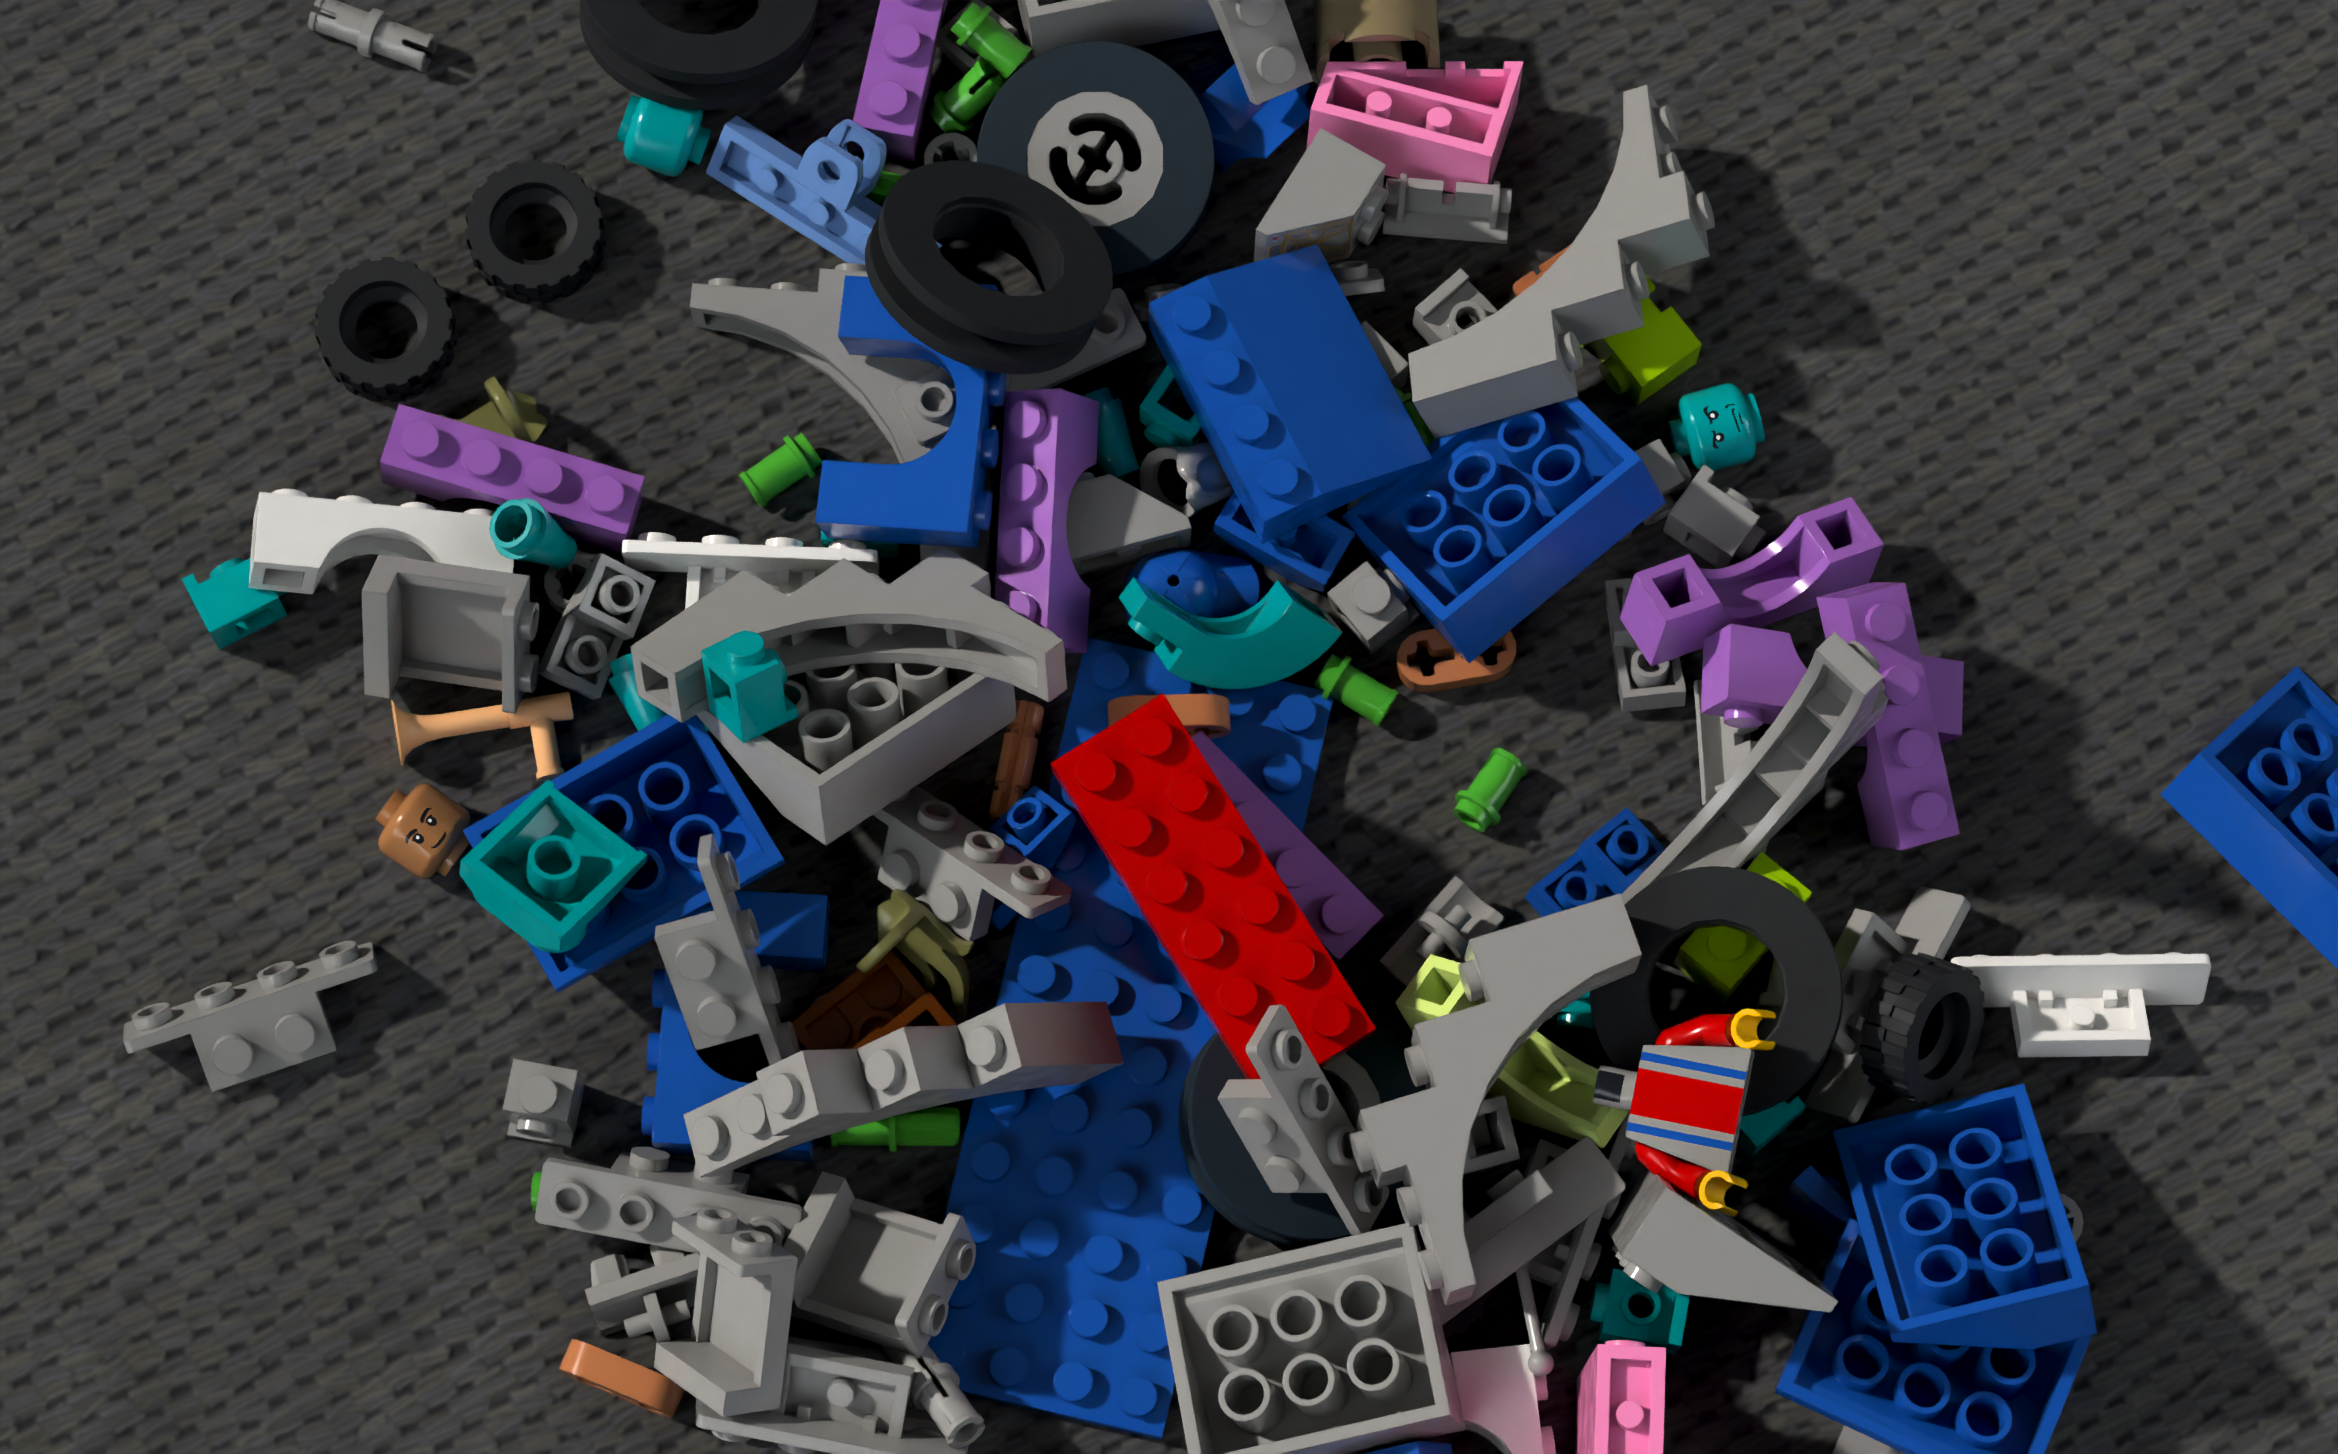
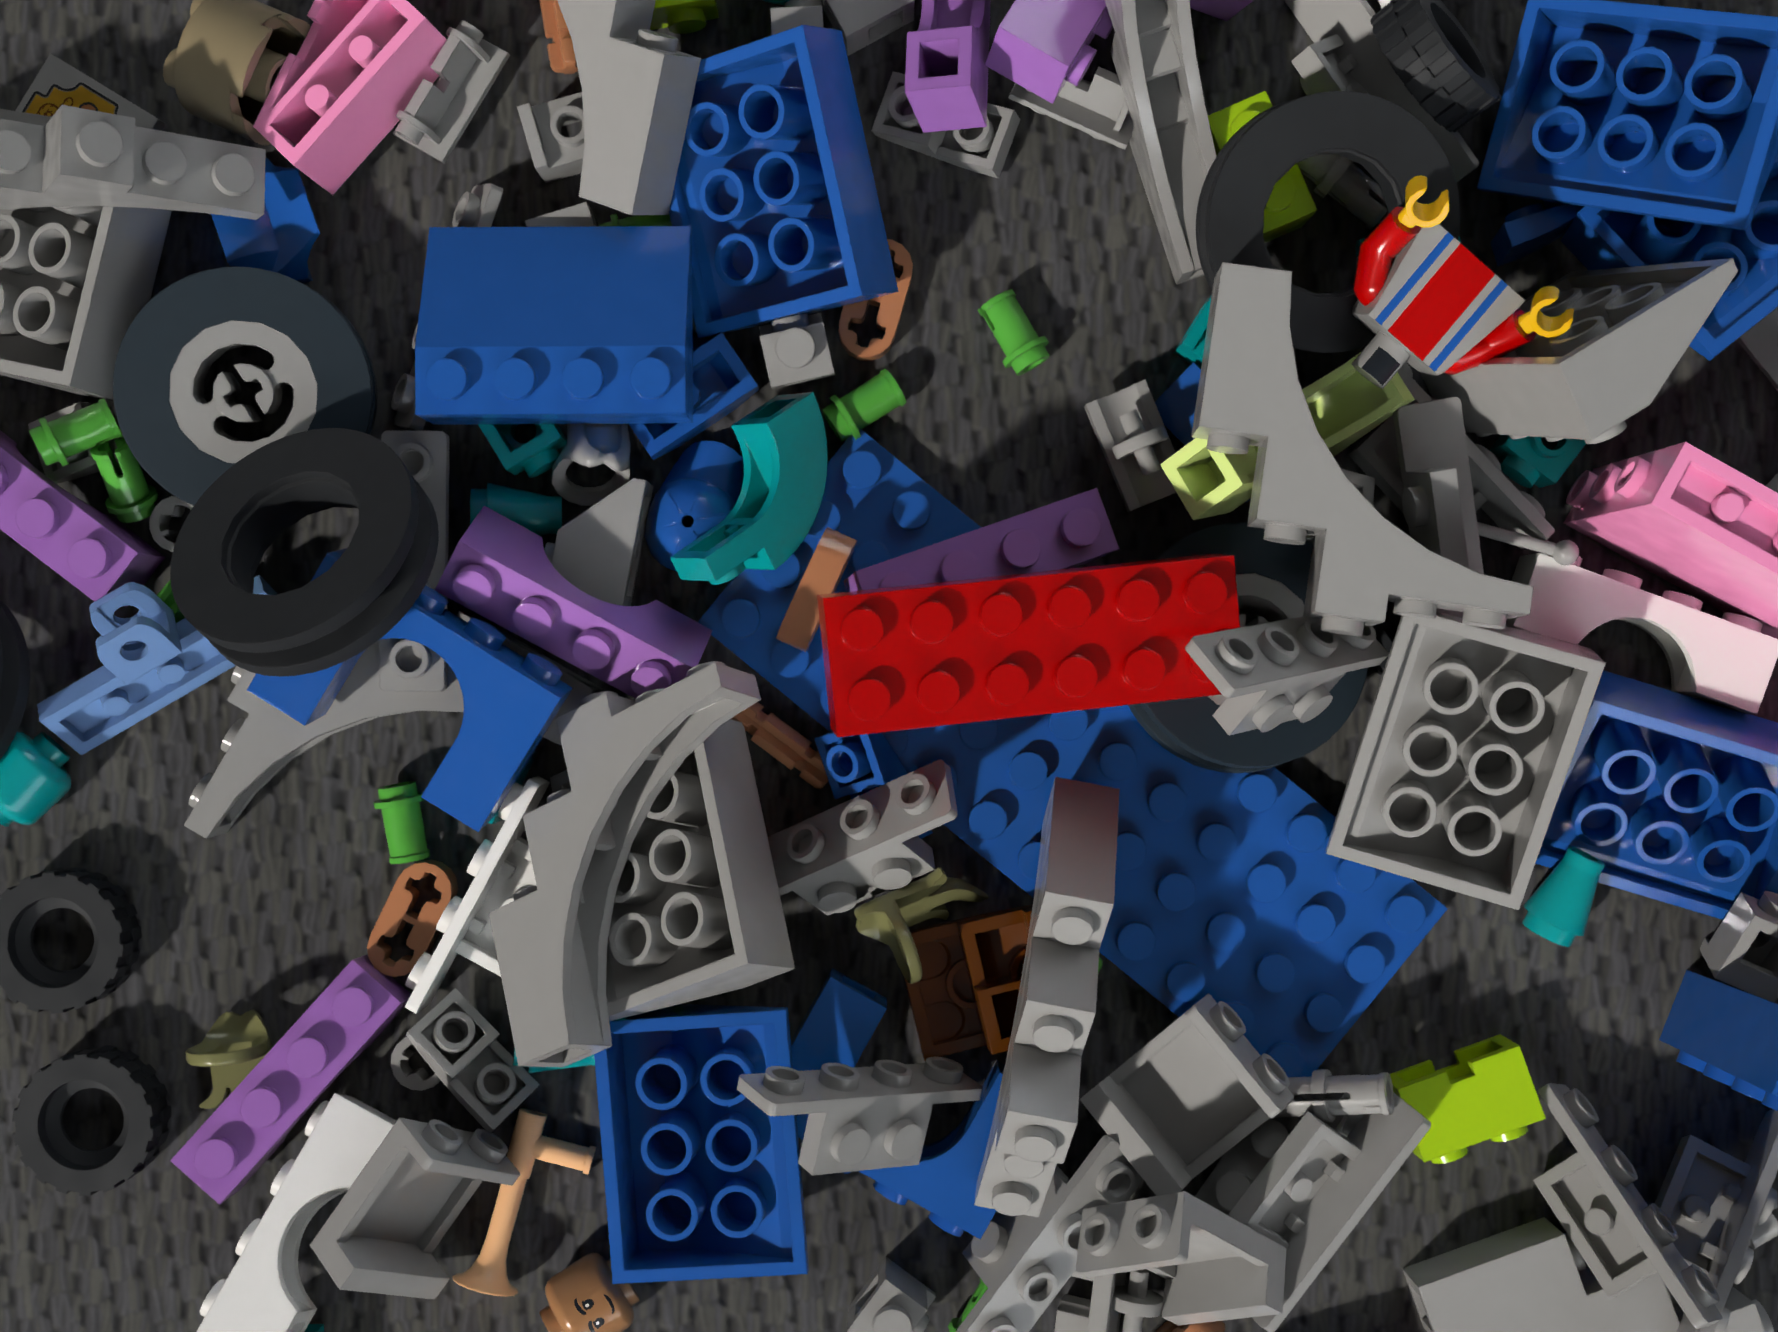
camera: 60 degrees left, 15 degrees up
(529, 534) = (357, 1094): teal cone -> none
(549, 870) = (695, 1236): teal slope -> none
(699, 503) = (399, 911): none -> nougat beam
(746, 685) = (610, 975): teal brick -> none
(1326, 201) = (393, 198): light grey slope -> none
(1599, 867) = (1136, 277): blue slope -> none

